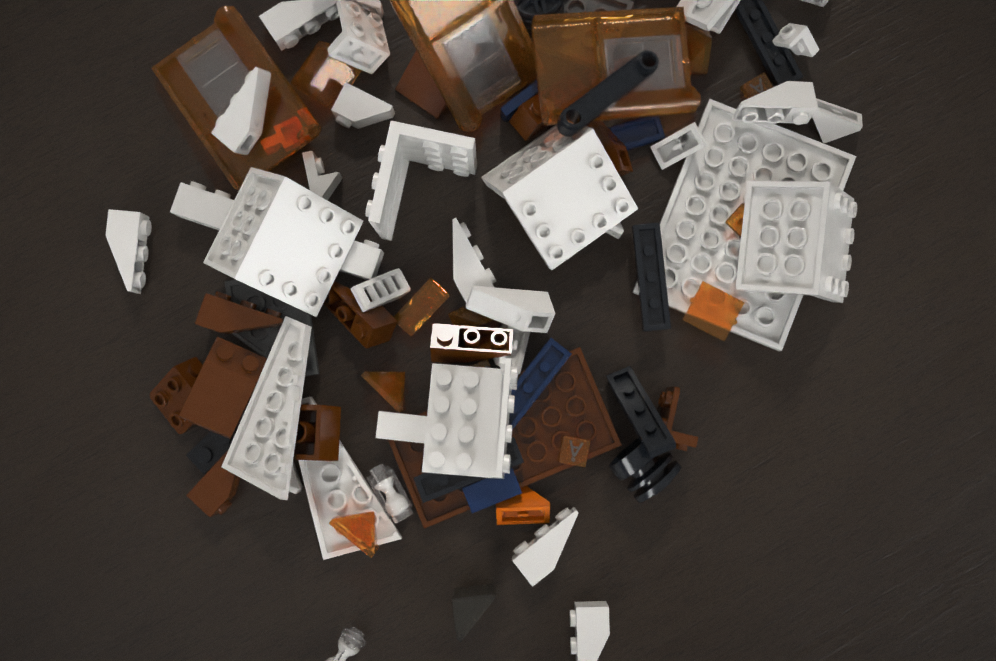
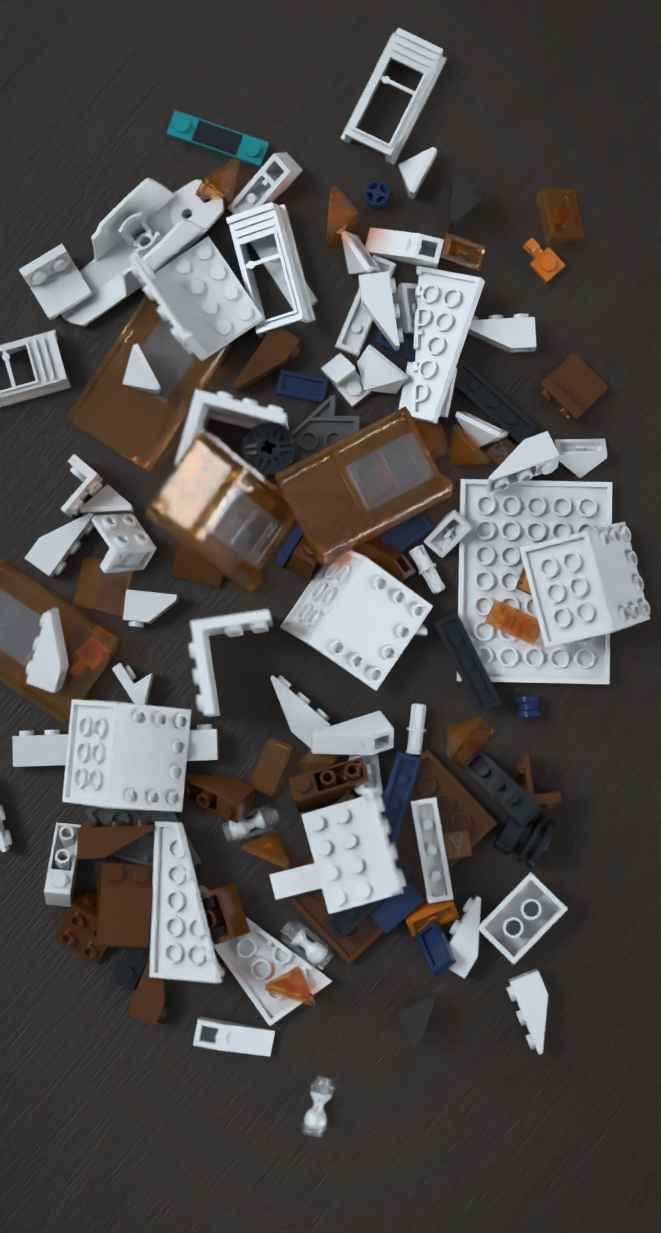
camera: 15 degrees left, 0 degrees up
(179, 331) = (62, 866): none -> white slope
(282, 556) = (233, 1037): none -> white slope
(394, 282) = (240, 755): white slope -> none
(395, 355) = (263, 818): none -> clear piece
(515, 545) = (436, 948): none -> dark blue tile
(547, 447) = (432, 850): none -> white plate
(576, 323) = (416, 729): none -> white axle
(607, 93) = (367, 516): black piece -> none
(612, 549) = (522, 918): none -> white slope
(621, 351) = (466, 738): none -> clear orange slope
(644, 173) = (427, 569): none -> white axle
(694, 342) = (528, 706): none -> dark blue wheel
(711, 256) = (513, 622): none -> clear orange slope
(713, 311) = (534, 672): clear orange piece -> none
(724, 75) = (465, 451): none -> clear orange slope
(745, 60) = (478, 430): none -> white slope
(797, 39) = (518, 395): white bracket -> none
(849, 53) = (572, 388): none -> reddish brown bracket

